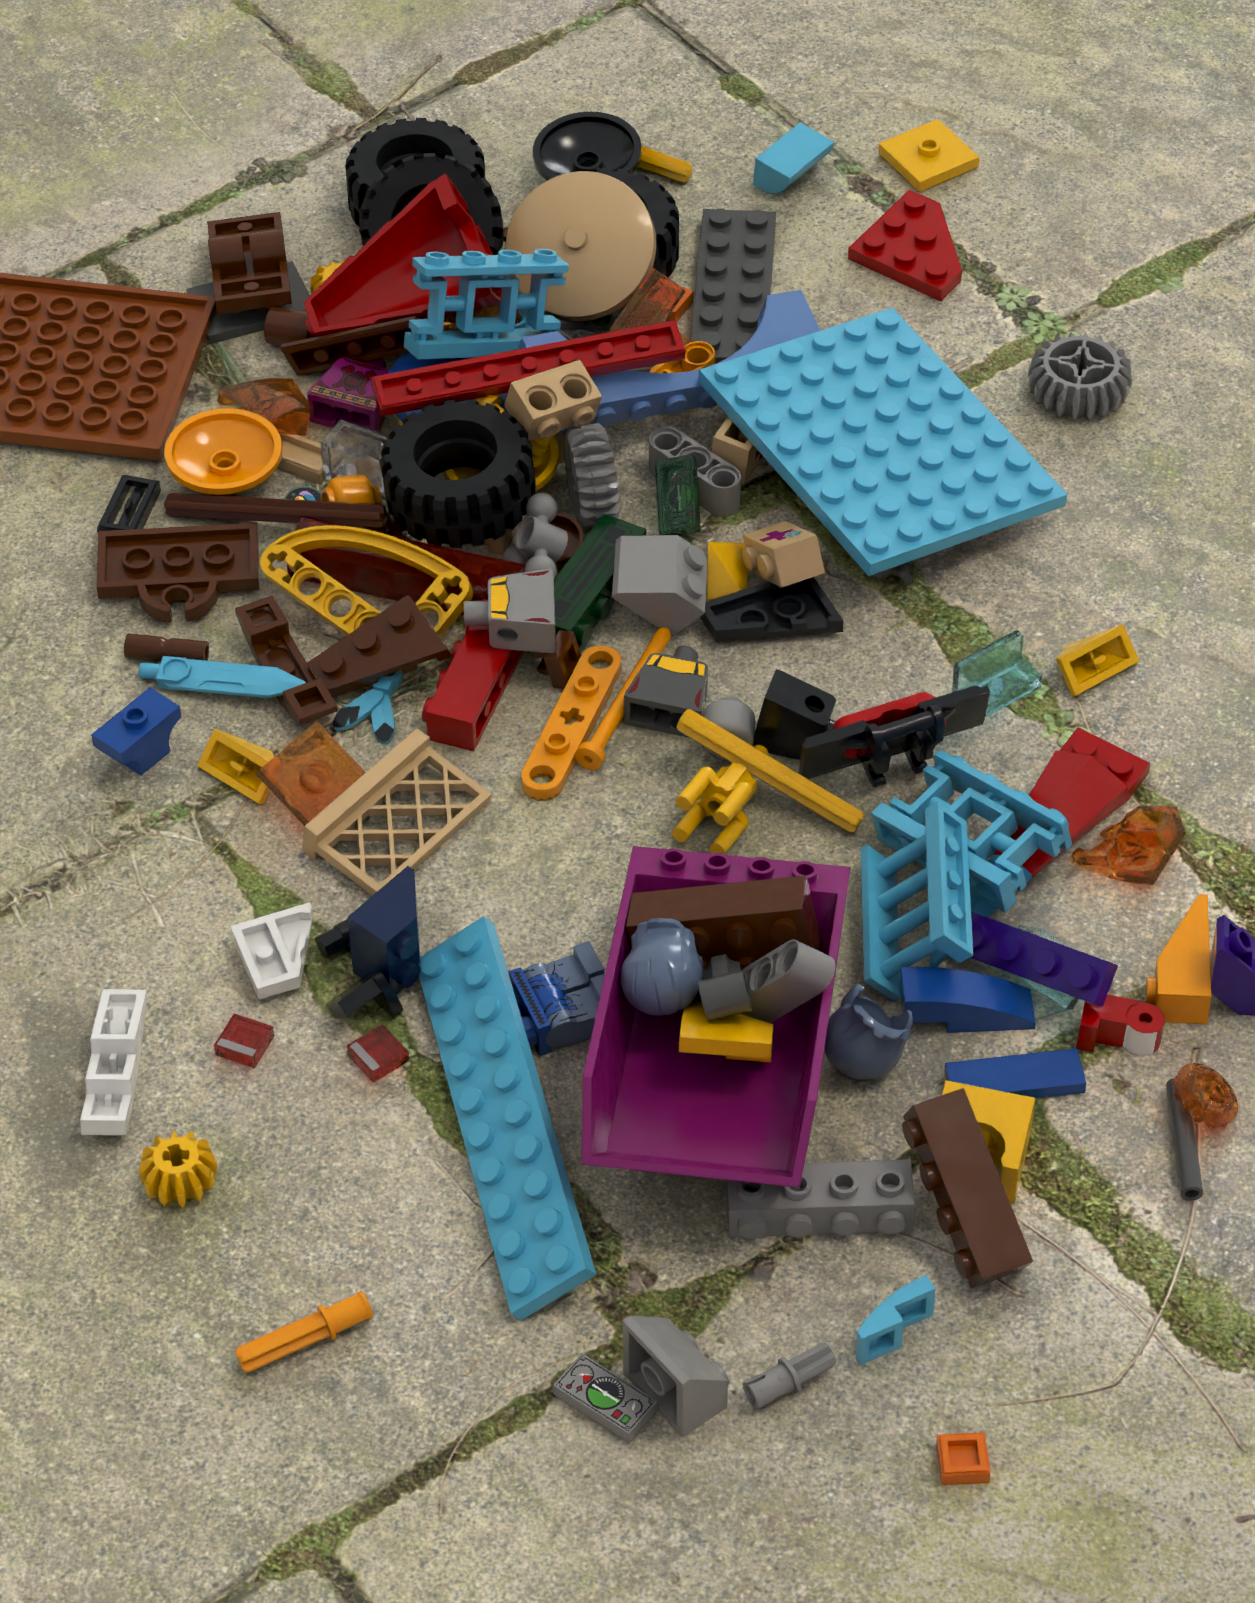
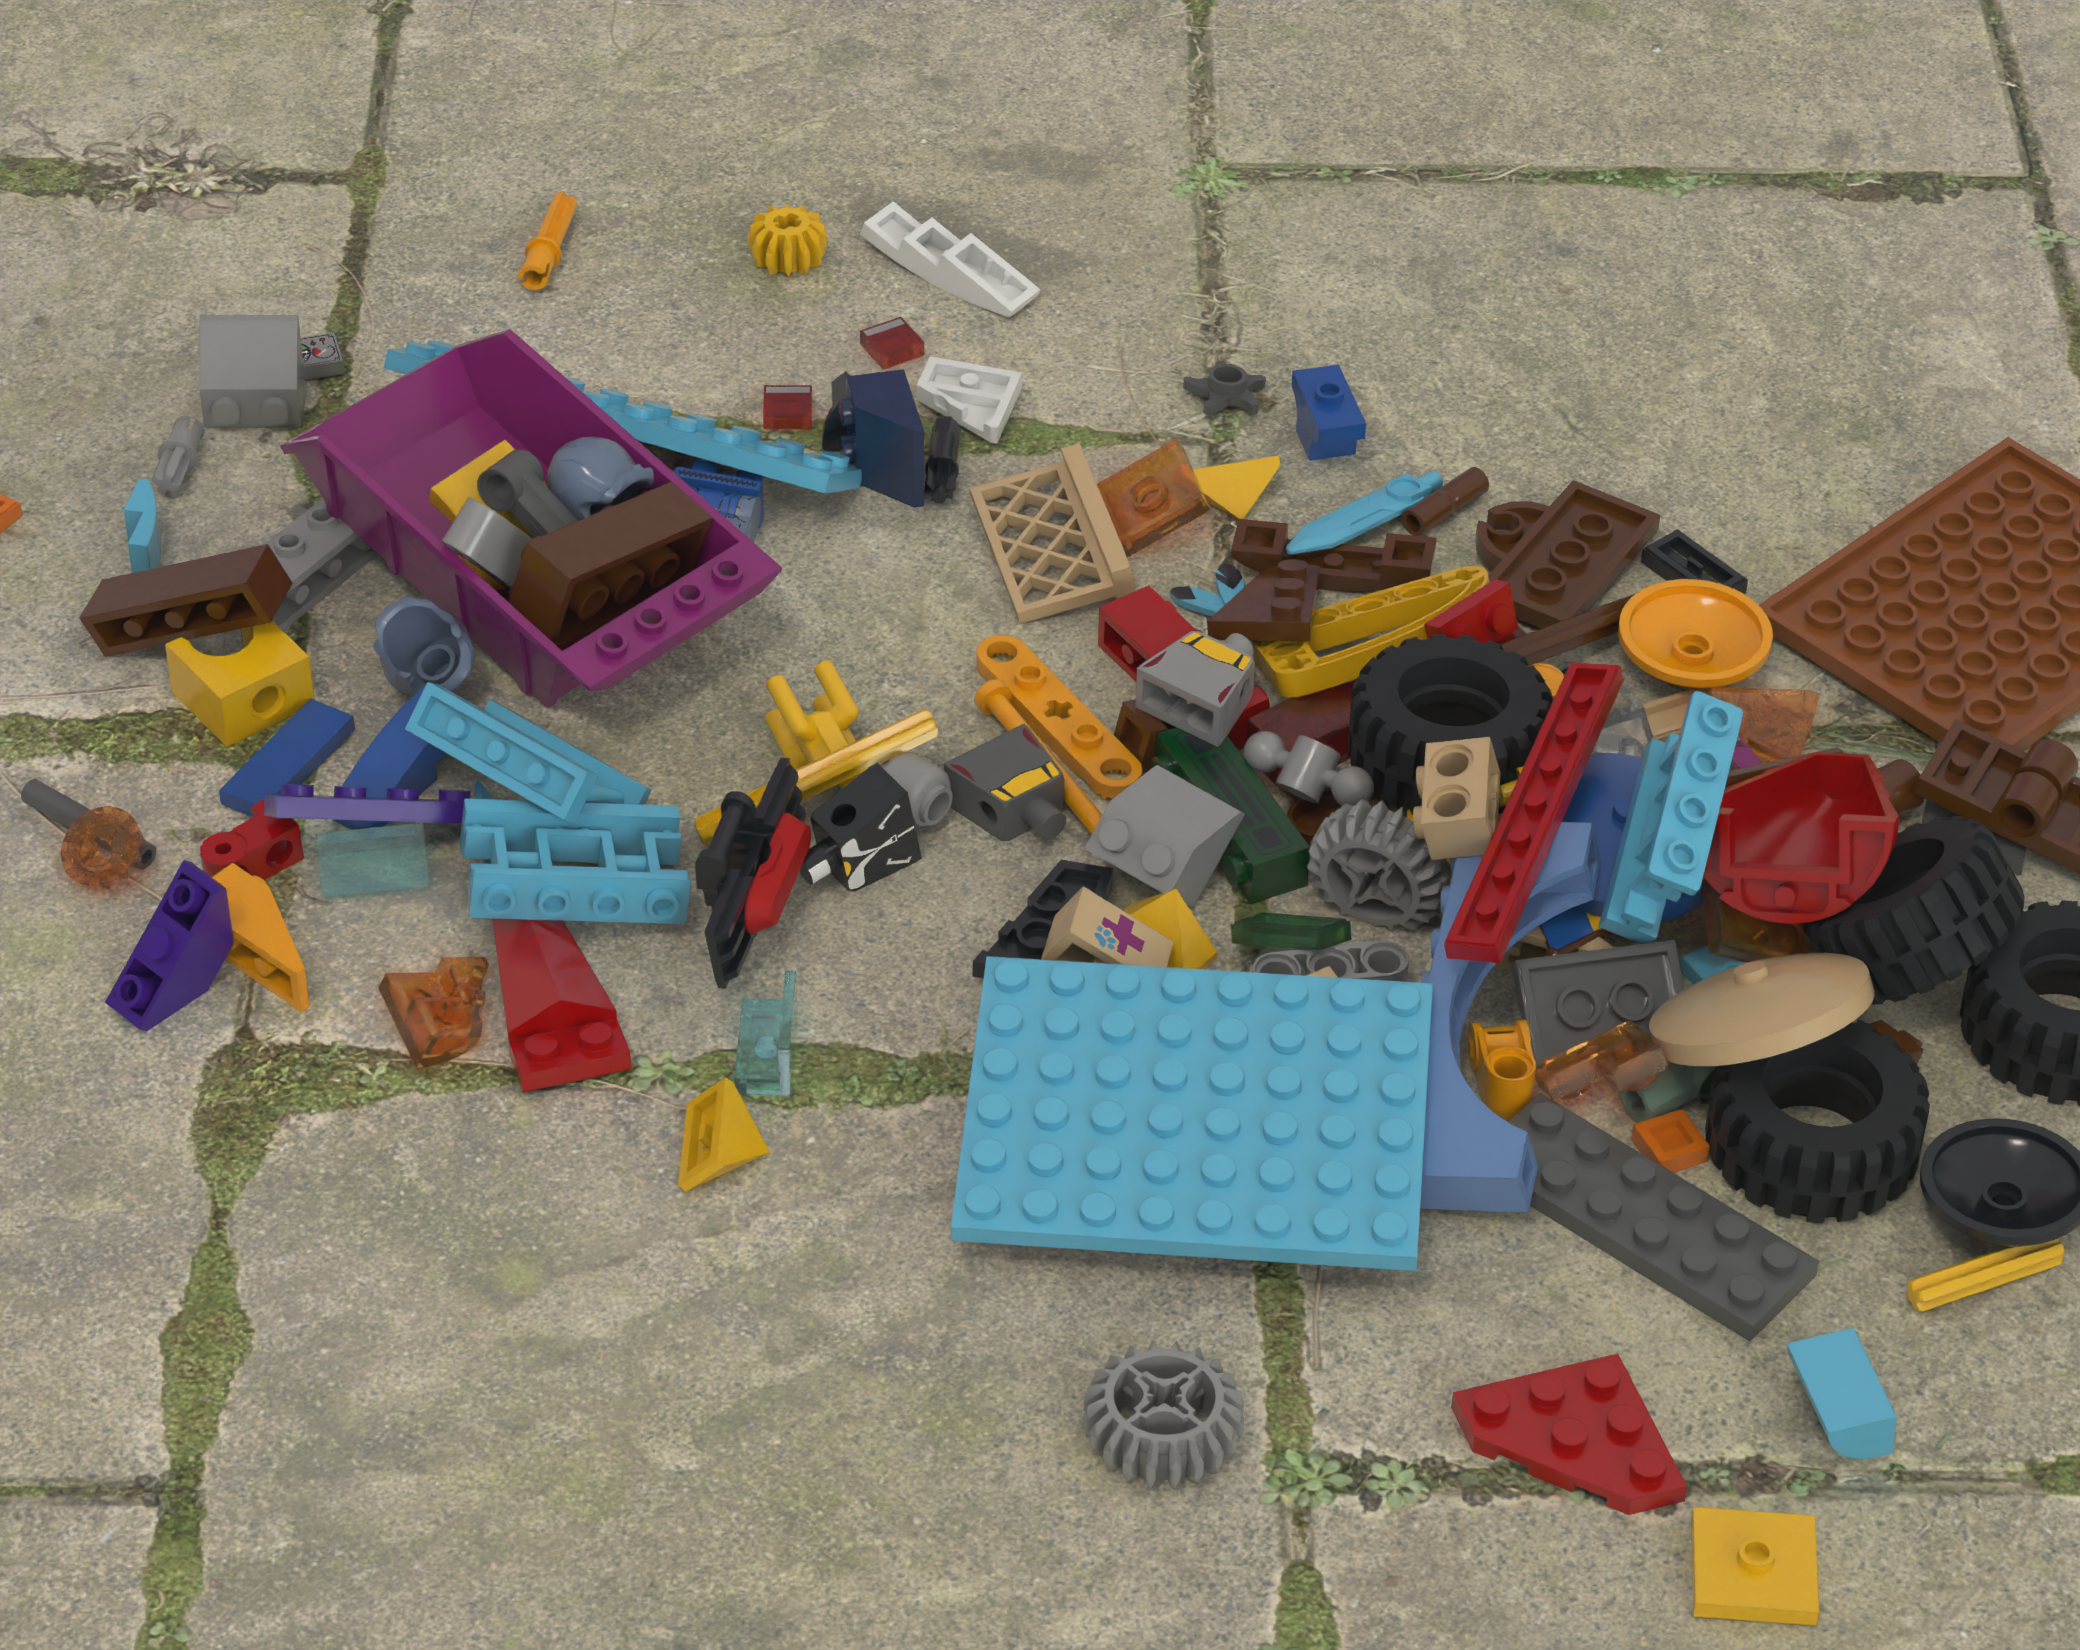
camera: 125 degrees right, 5 degrees down
(134, 824) = (1225, 387): none -> dark grey animal
(324, 512) = (1483, 614): none -> red plate

